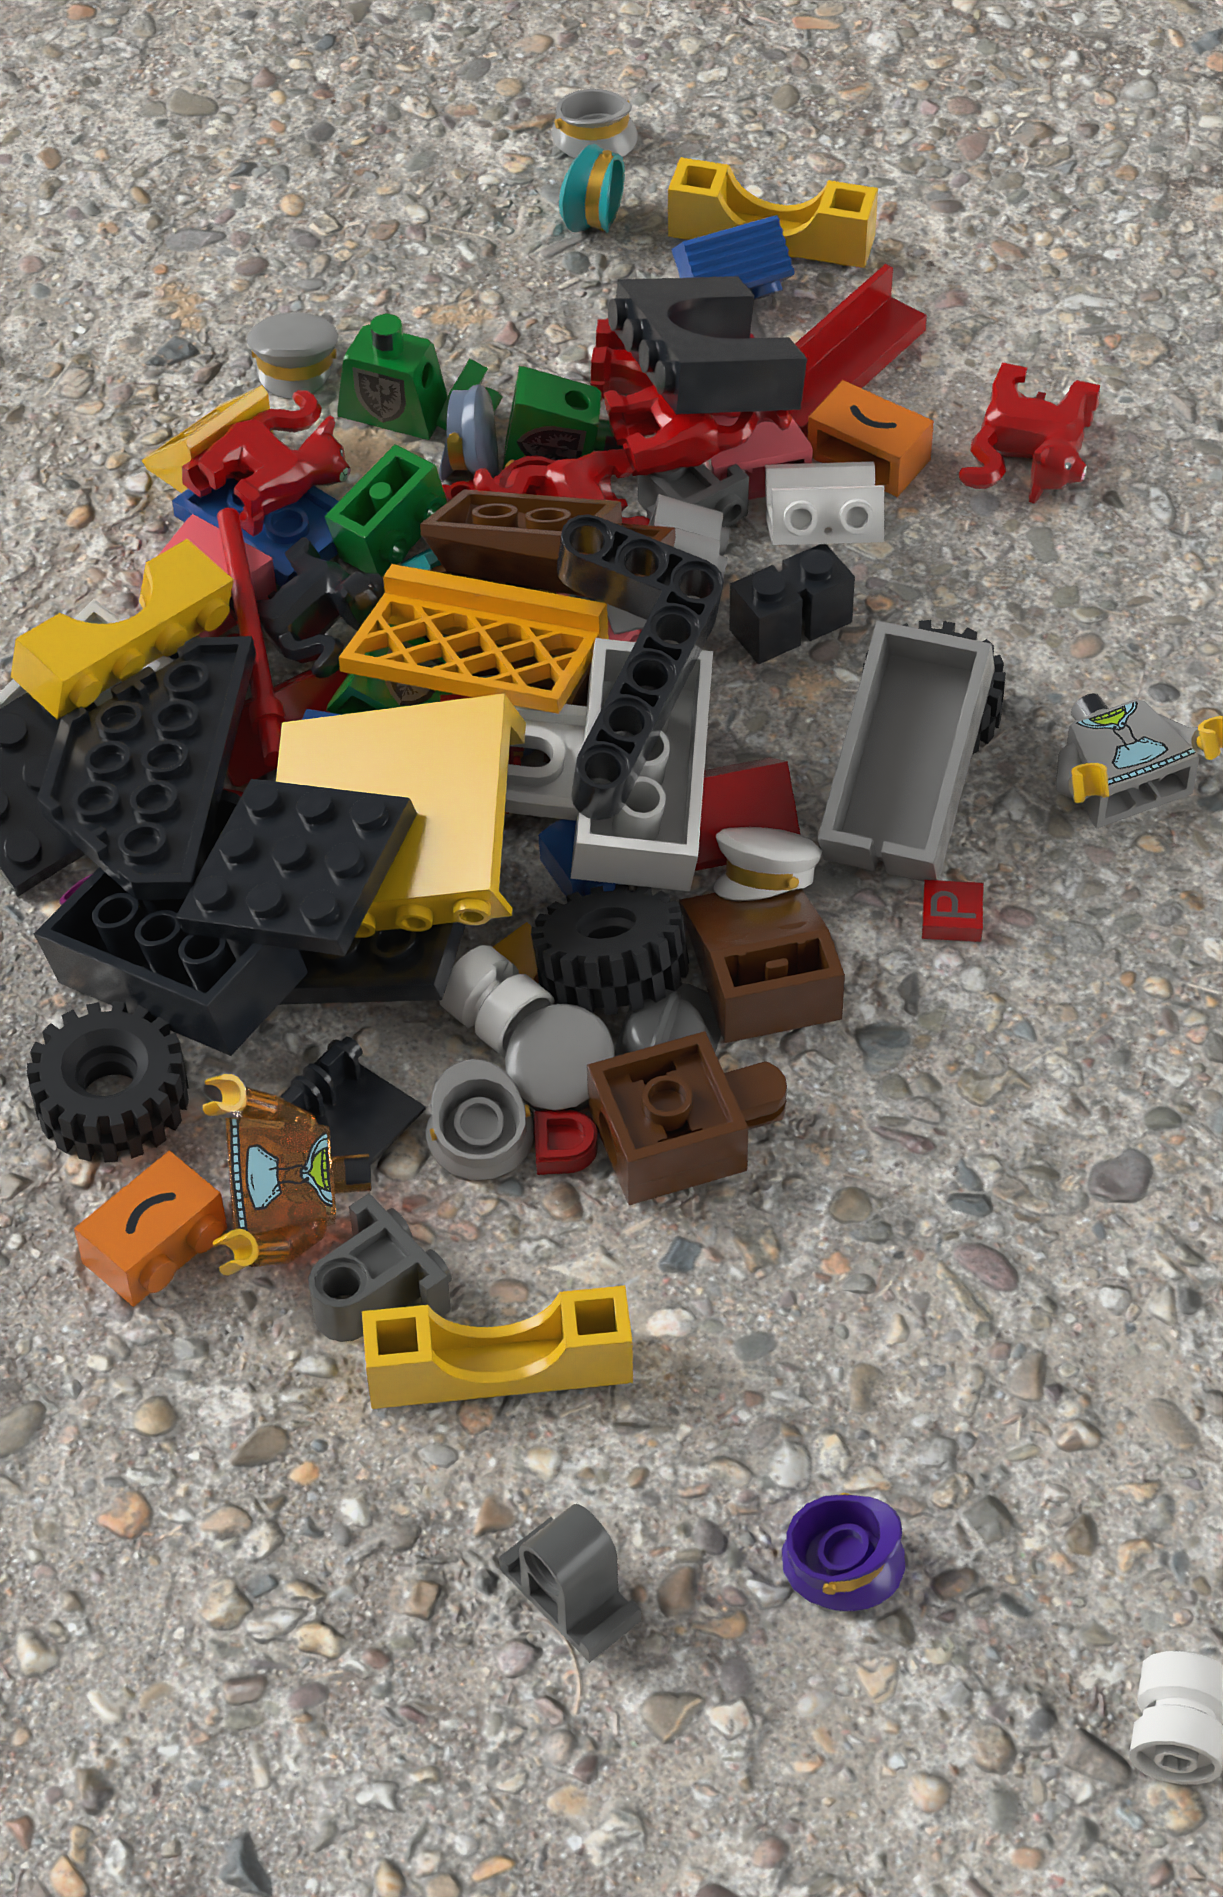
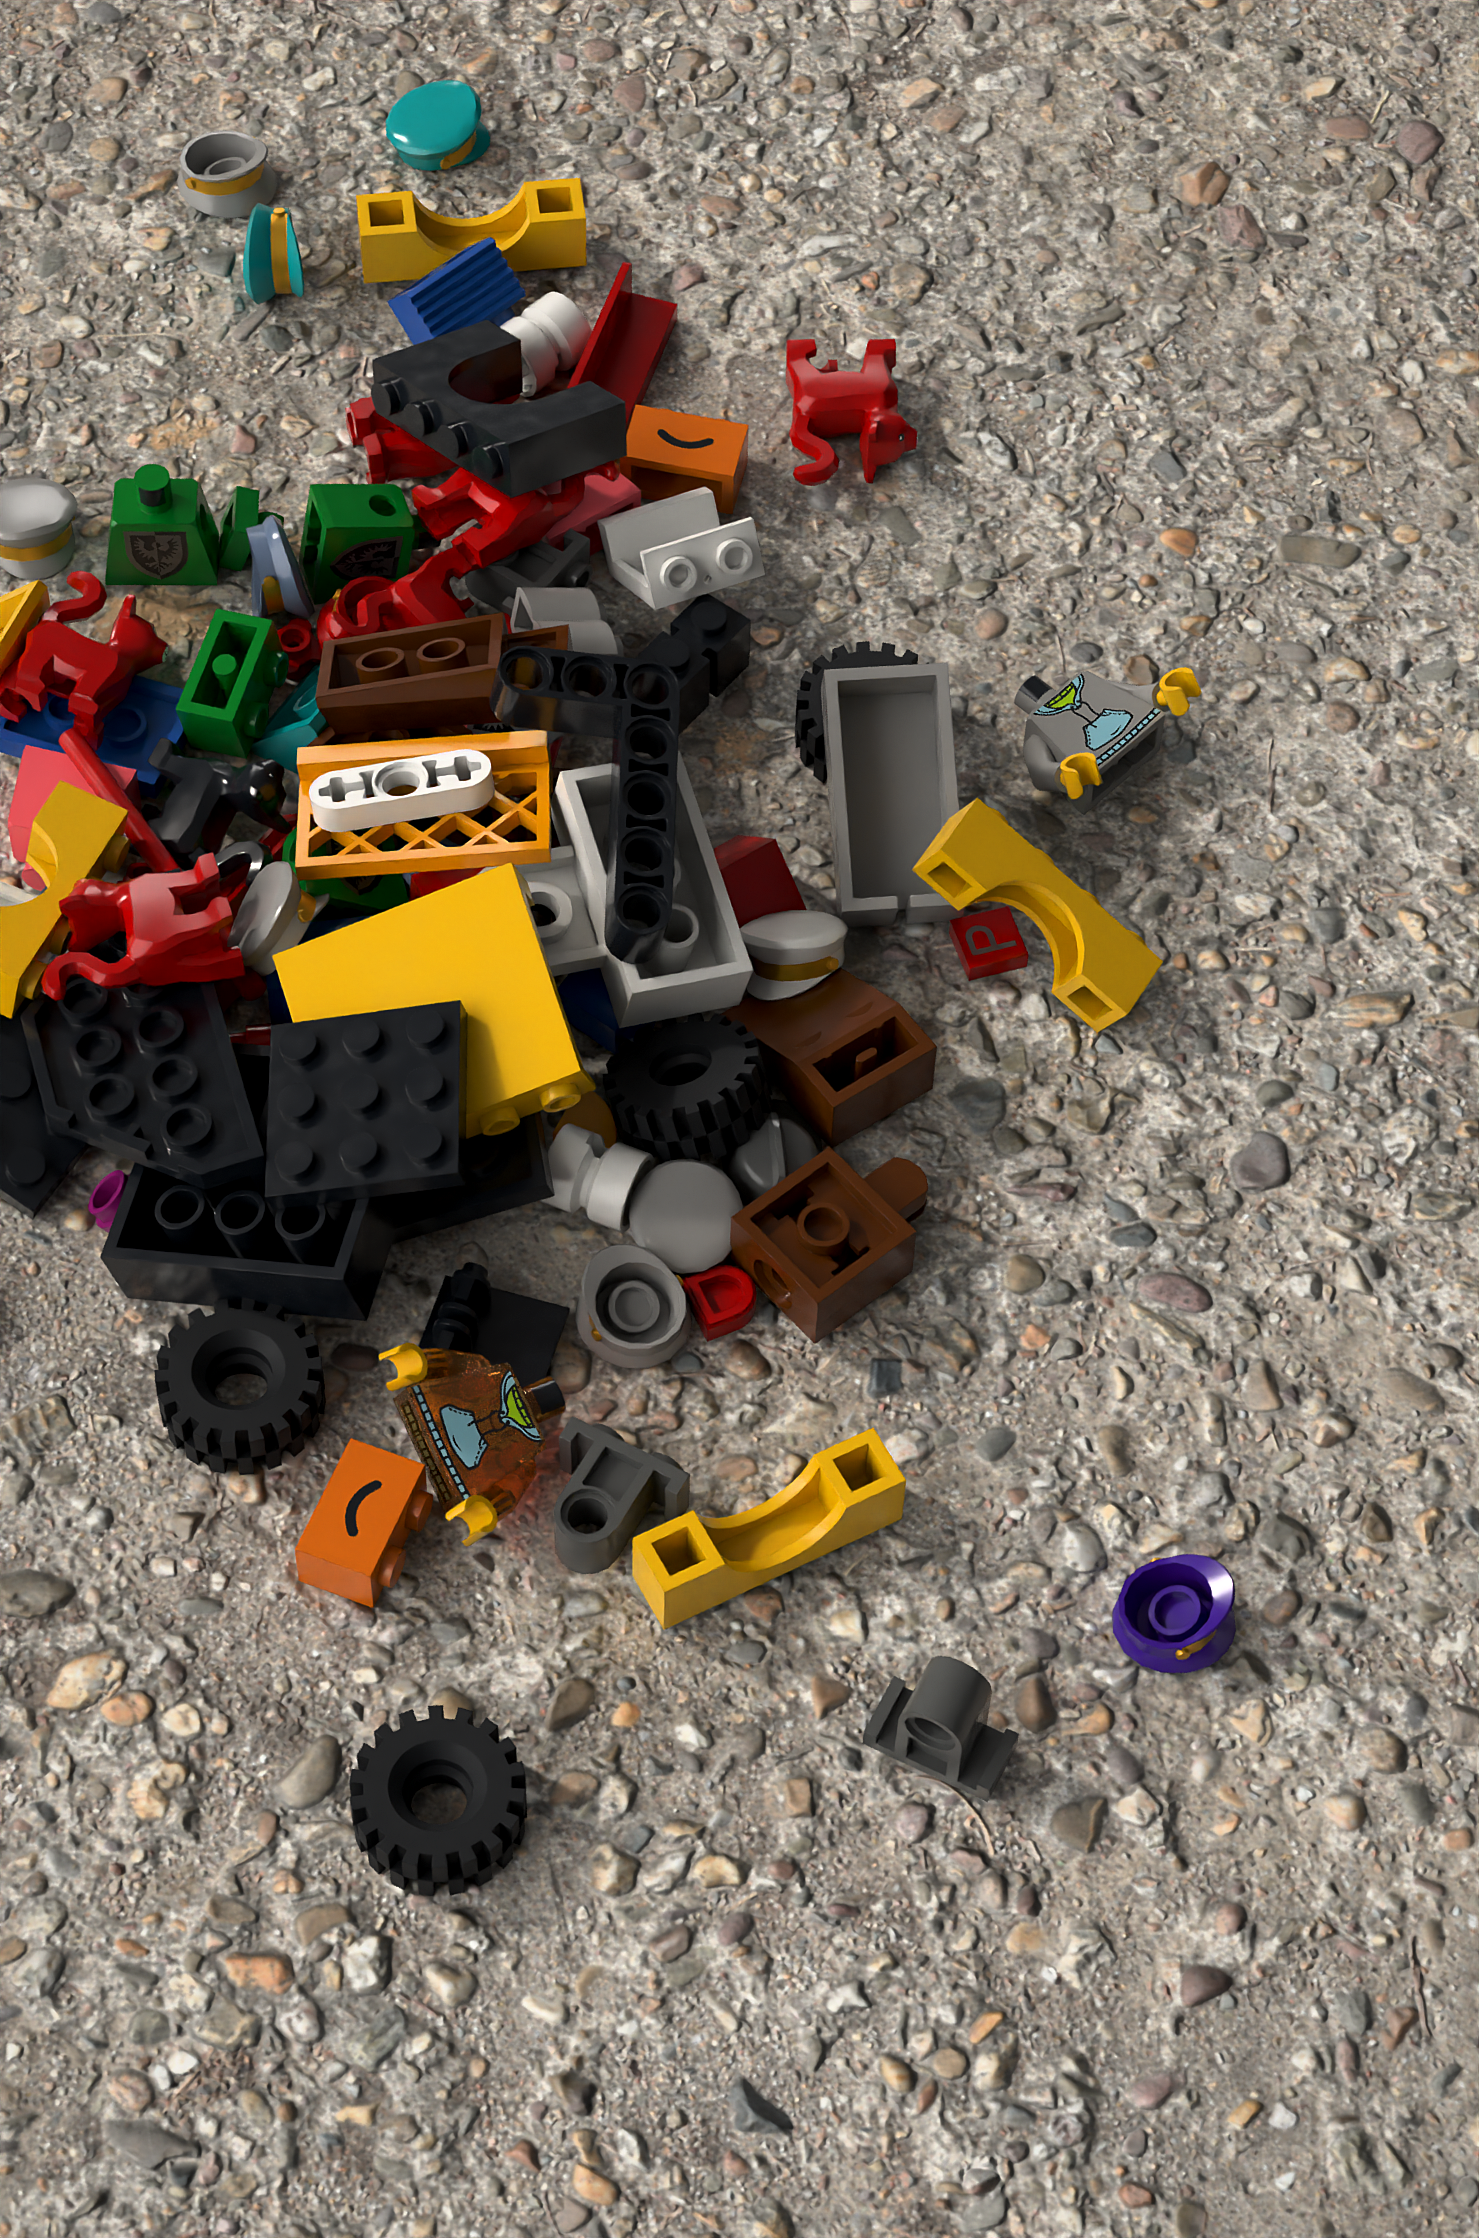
camera: 25 degrees left, 5 degrees up
(87, 1446) = (430, 1754): none -> black tyre
(200, 671) = (168, 927): none -> red animal
(311, 695) = (273, 916): none -> light grey piece
(491, 621) = (425, 802): none -> white beam
(789, 130) = (438, 126): none -> teal piece
(790, 310) = (551, 339): none -> white wheel
(959, 828) = (1095, 958): none -> yellow arch

